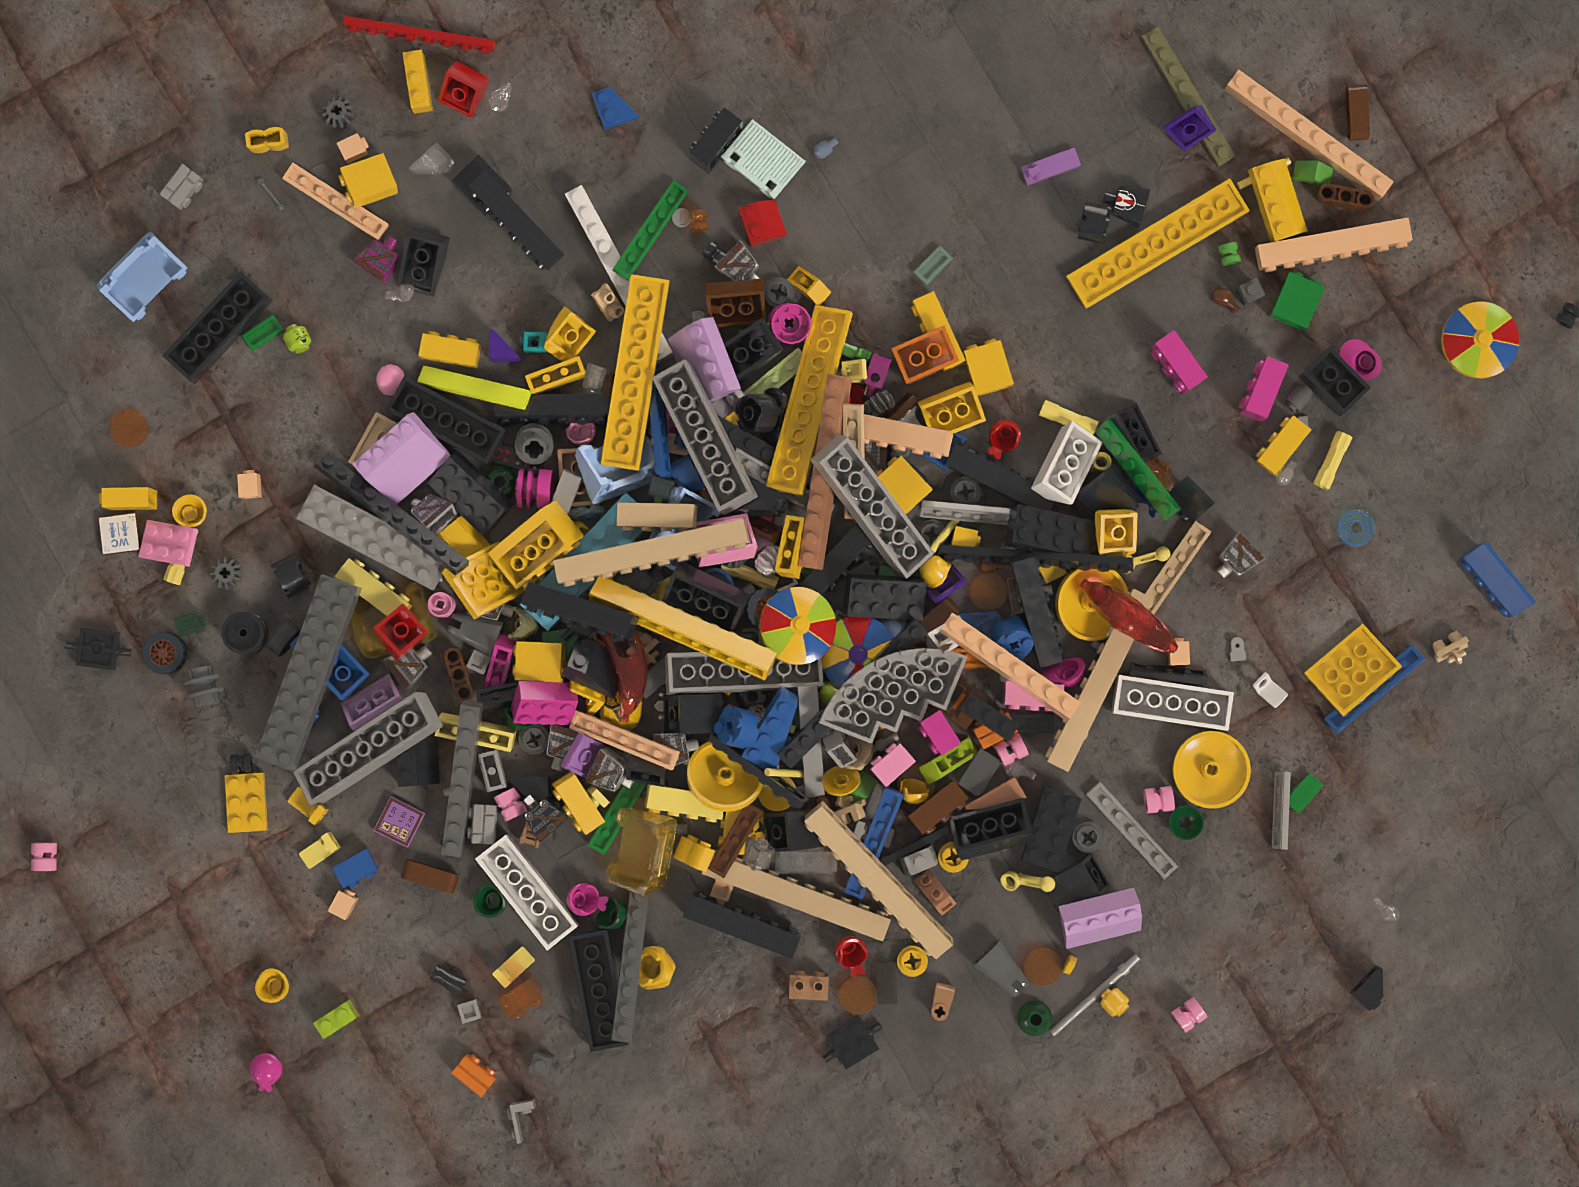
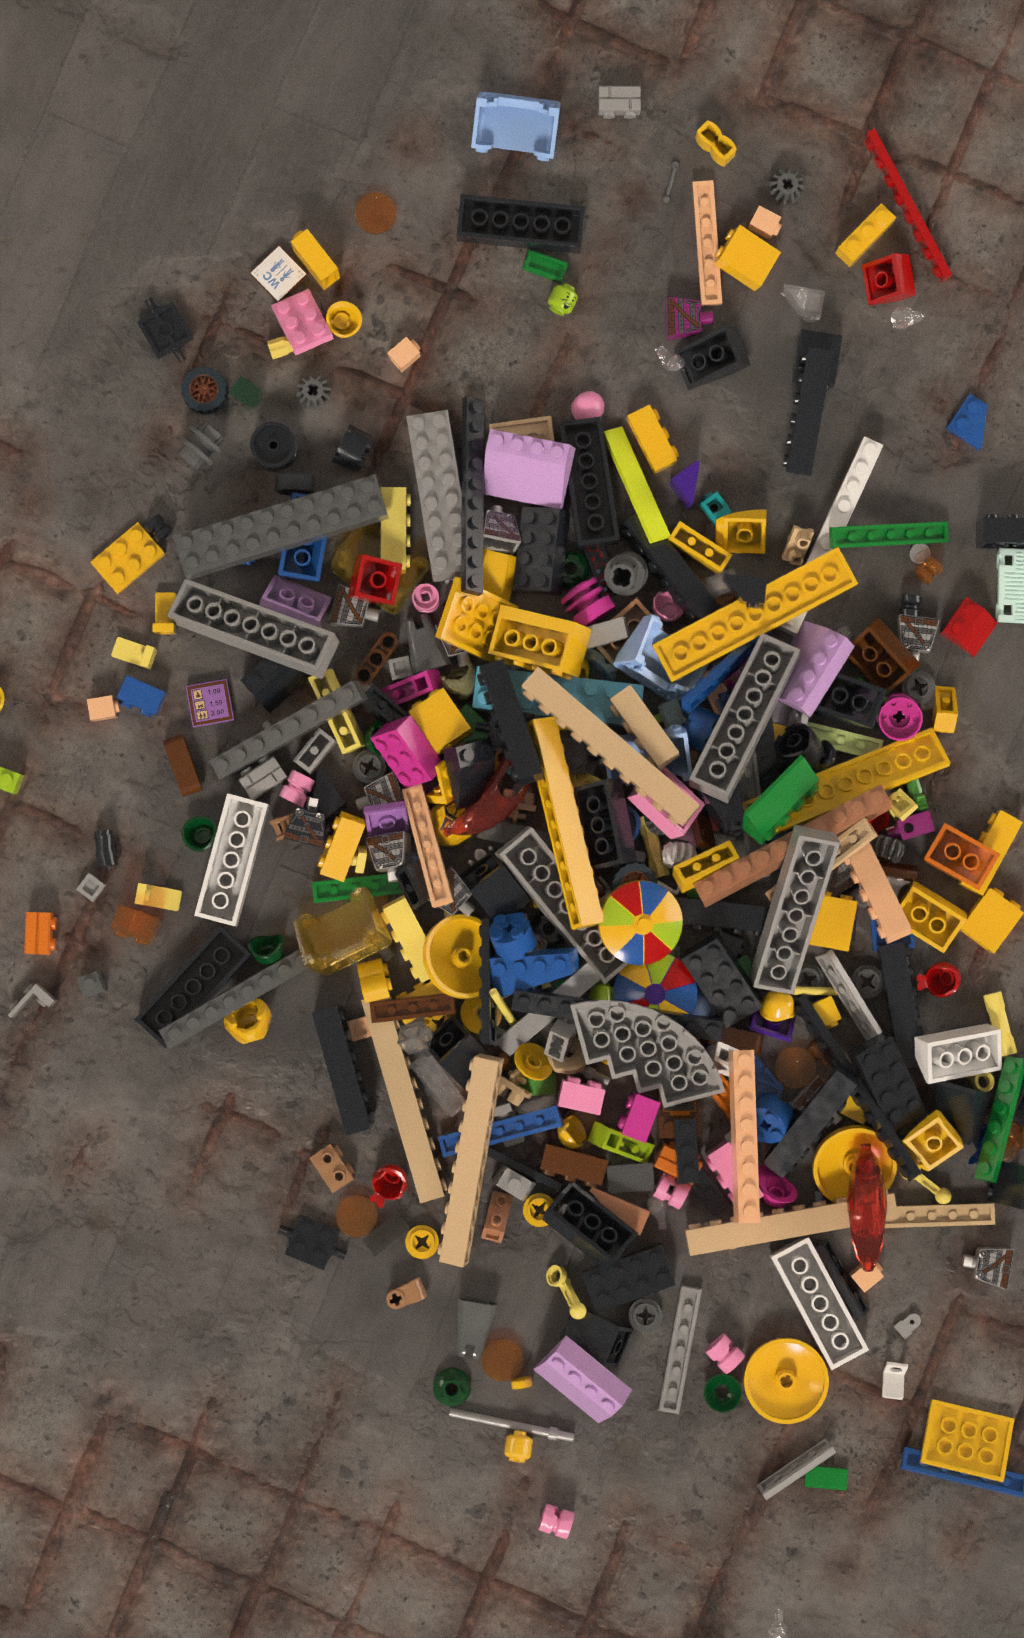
camera: 45 degrees right, 0 degrees up
(585, 899) = (262, 915): dark pink hat -> none
(612, 364) = (747, 589): none -> black slope
(785, 456) = (780, 801): none -> green slope

